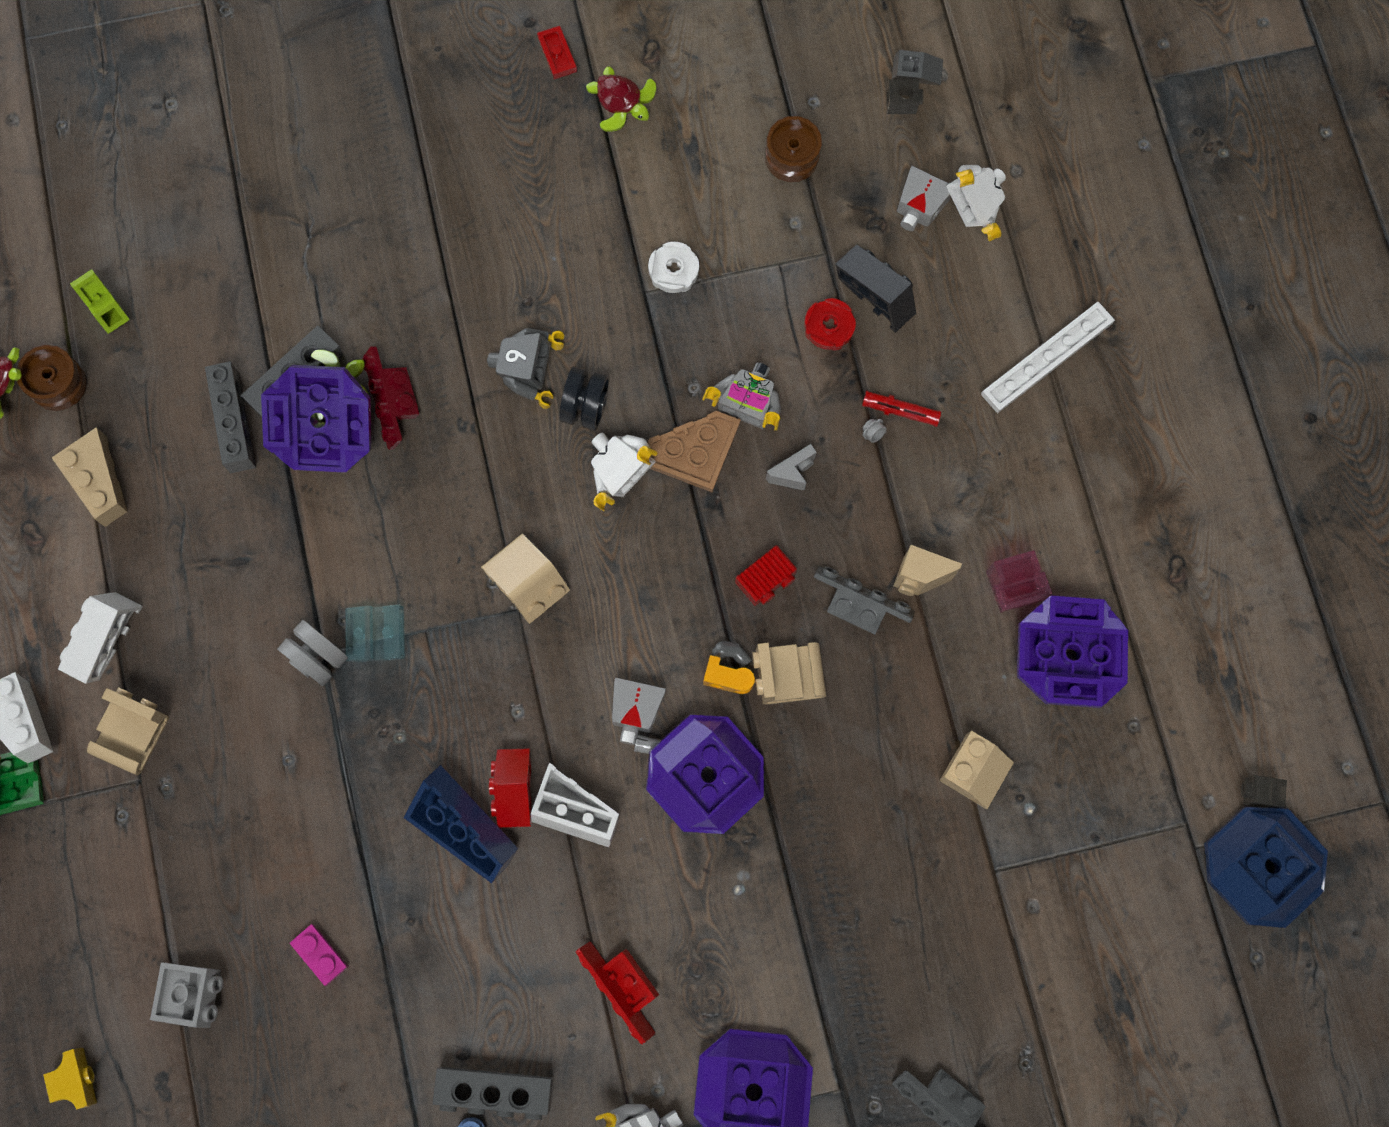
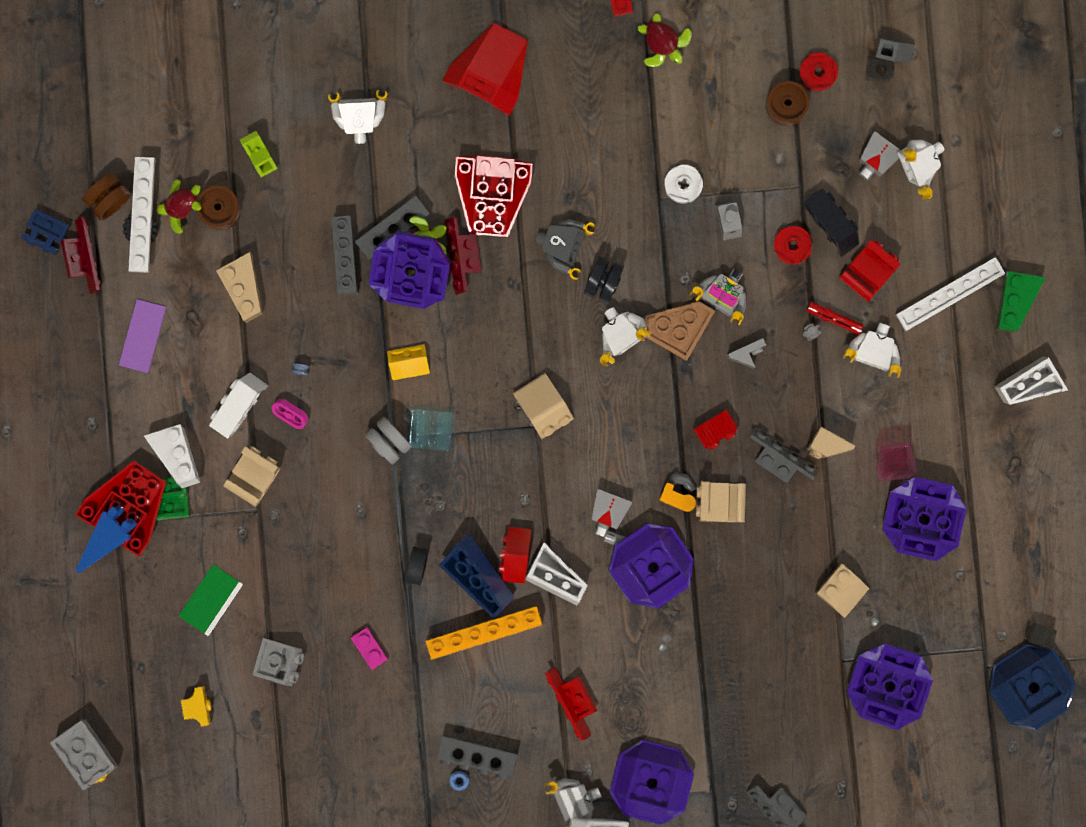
camera: 15 degrees right, 10 degrees up
(82, 919) = (210, 600): none -> green sticker
(173, 638) = (290, 413): none -> dark pink plate
(183, 576) = (300, 369): none -> sand blue bush
(232, 236) = (358, 115): none -> white torso
(332, 547) = (408, 362): none -> yellow panel
(372, 823) = (417, 565): none -> black tyre
(402, 159) = (491, 68): none -> red wedge
(420, 310) = (491, 191): none -> red wedge
(479, 906) = (483, 633): none -> light orange brick
(741, 298) = (729, 220): none -> light grey torso
(827, 95) = (811, 80): none -> red plate
(938, 338) = (870, 270): none -> red piece
(964, 441) = (875, 350): none -> torso
(1098, 888) = (910, 688): none -> dark purple piece
(1136, 350) = (1016, 299): none -> green wedge
(1181, 450) = (1031, 382): none -> white wedge

